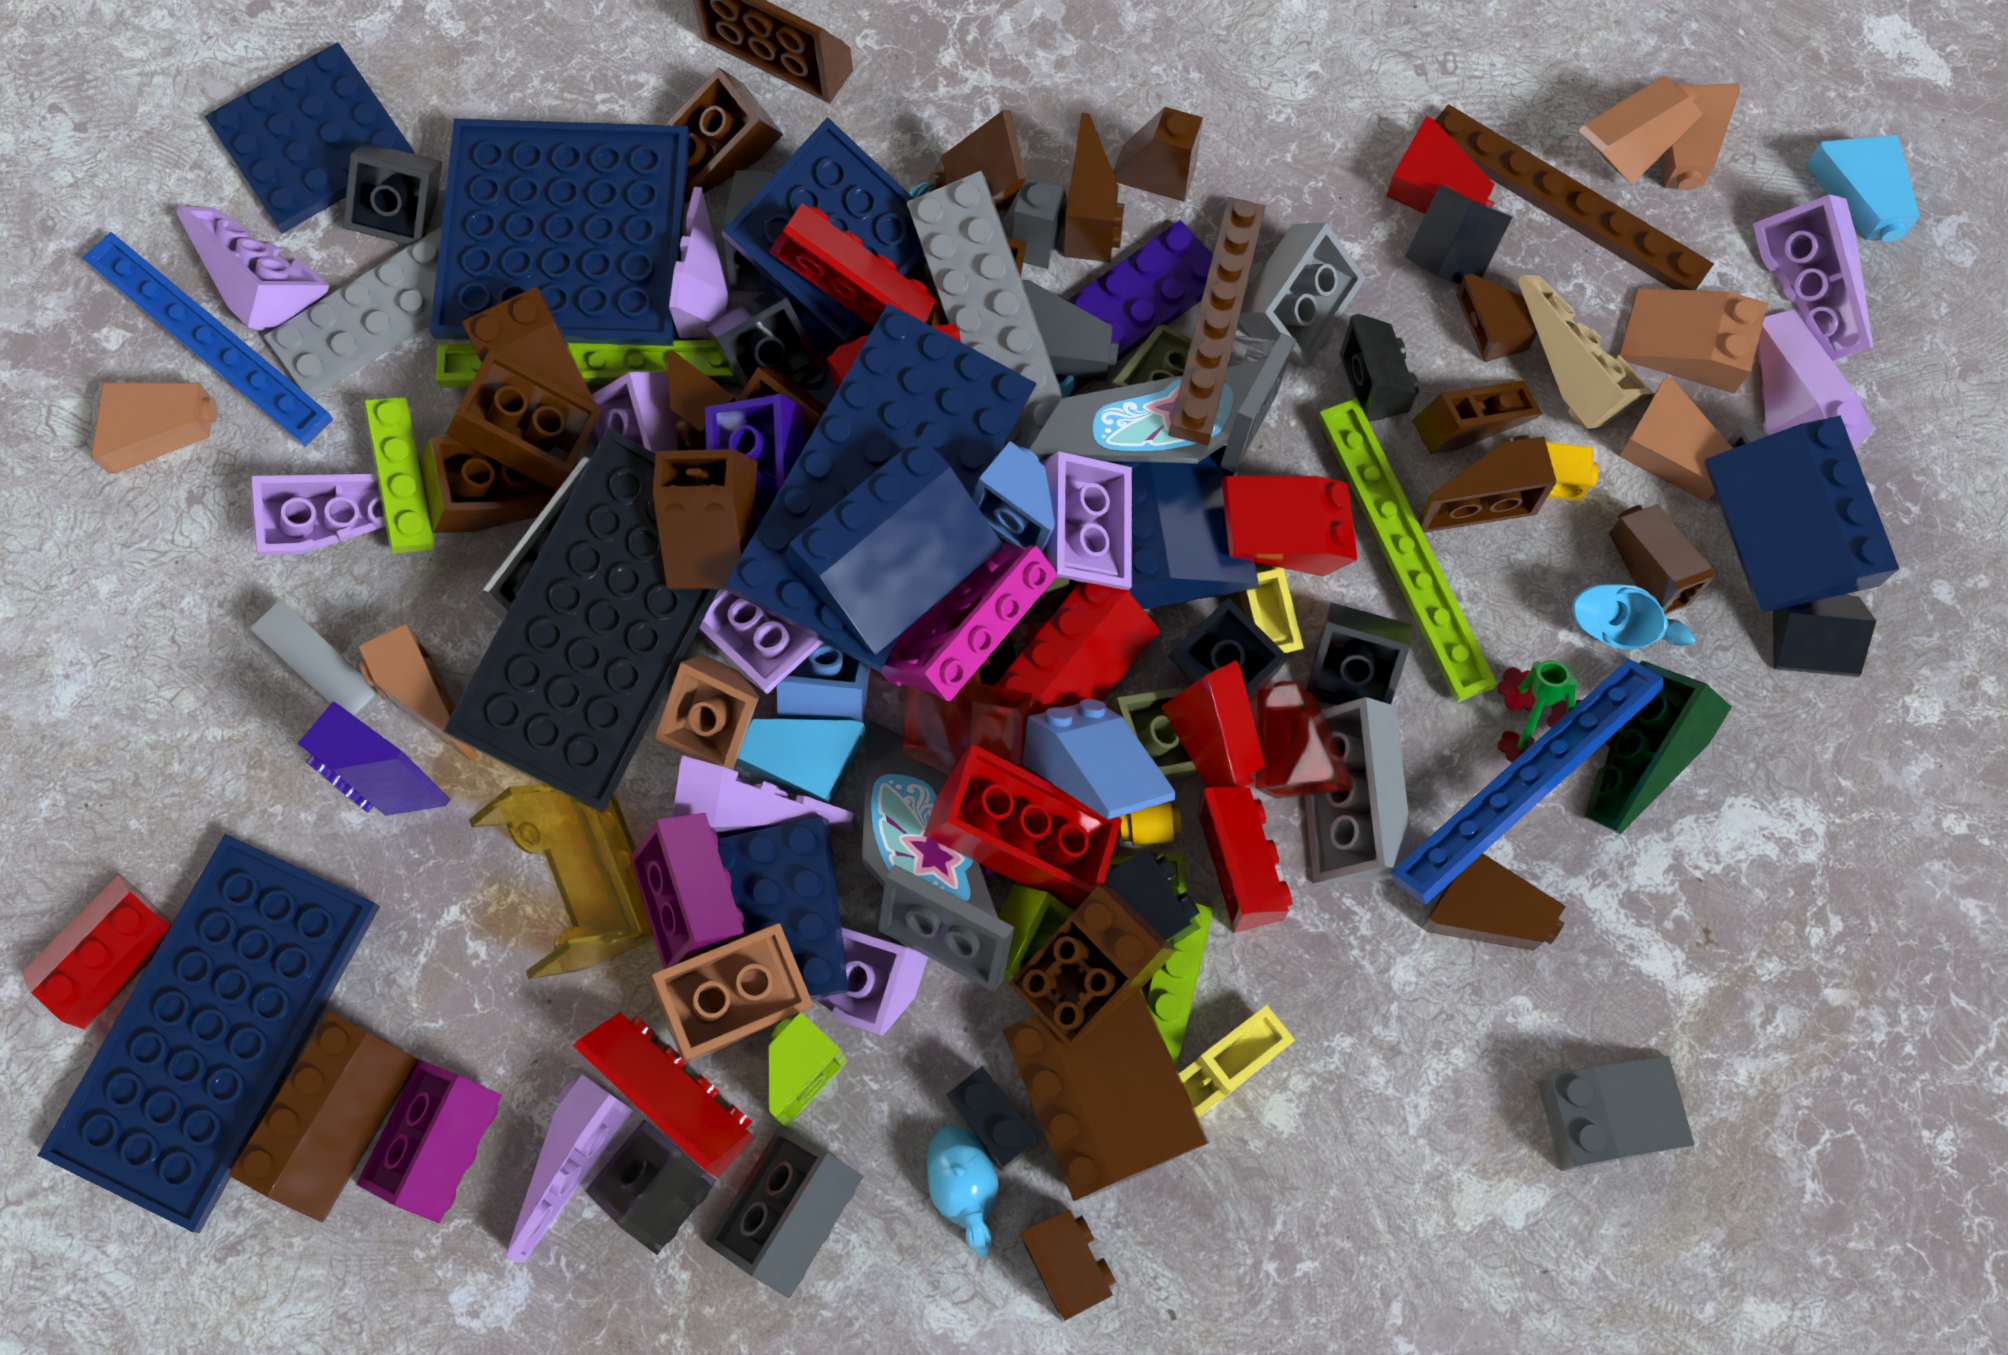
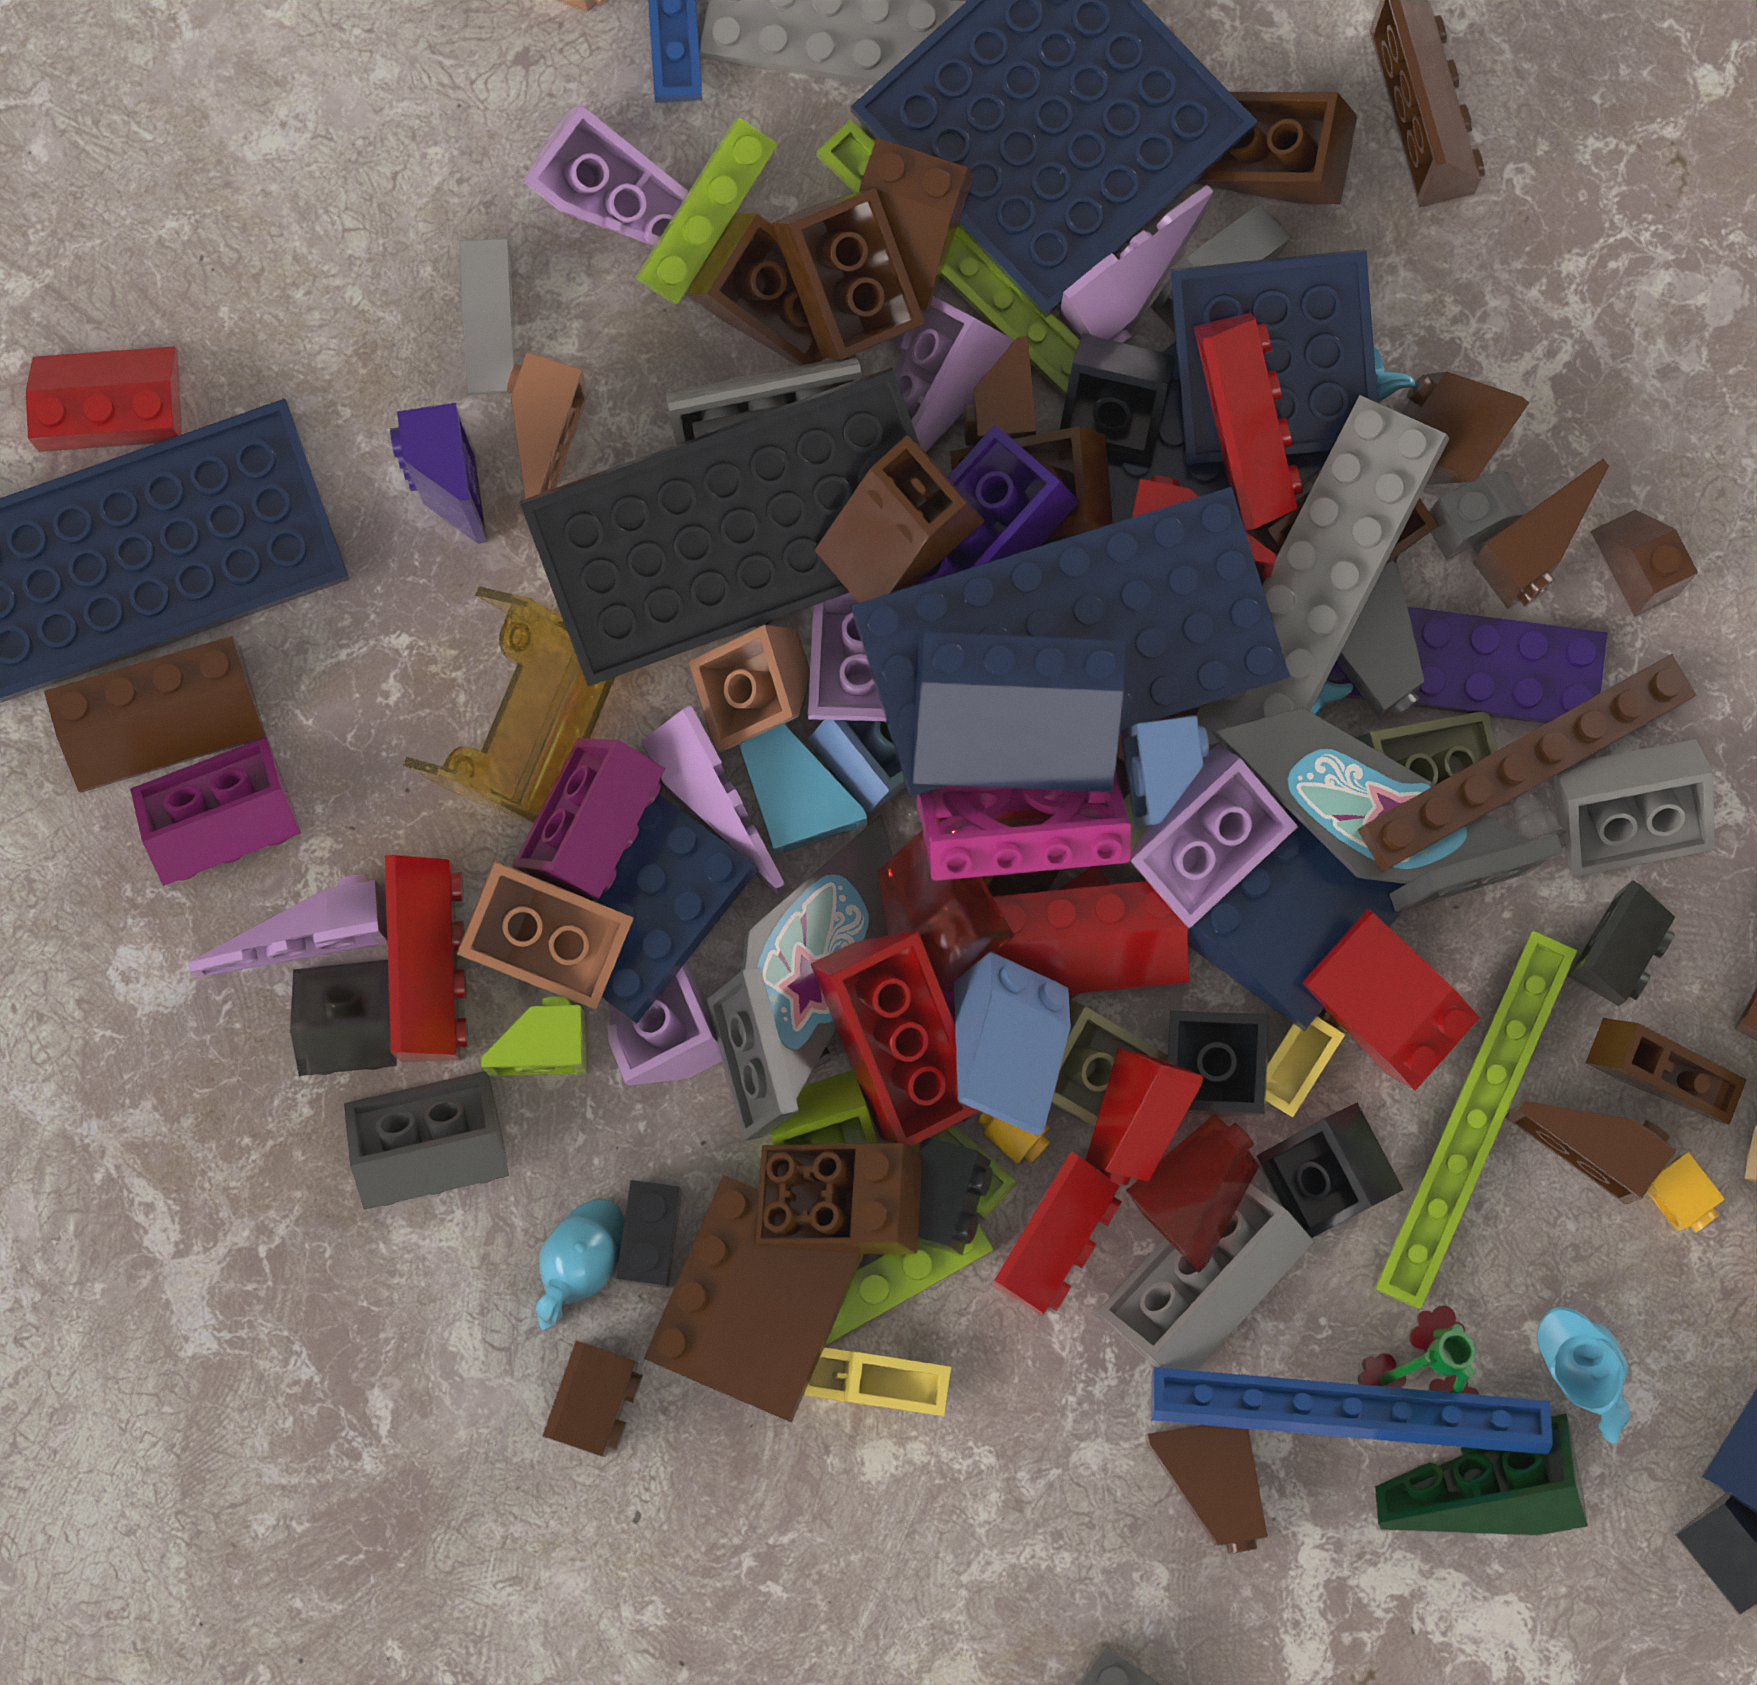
camera: 45 degrees right, 10 degrees up
(1661, 557) = (1674, 1346): reddish brown slope -> none

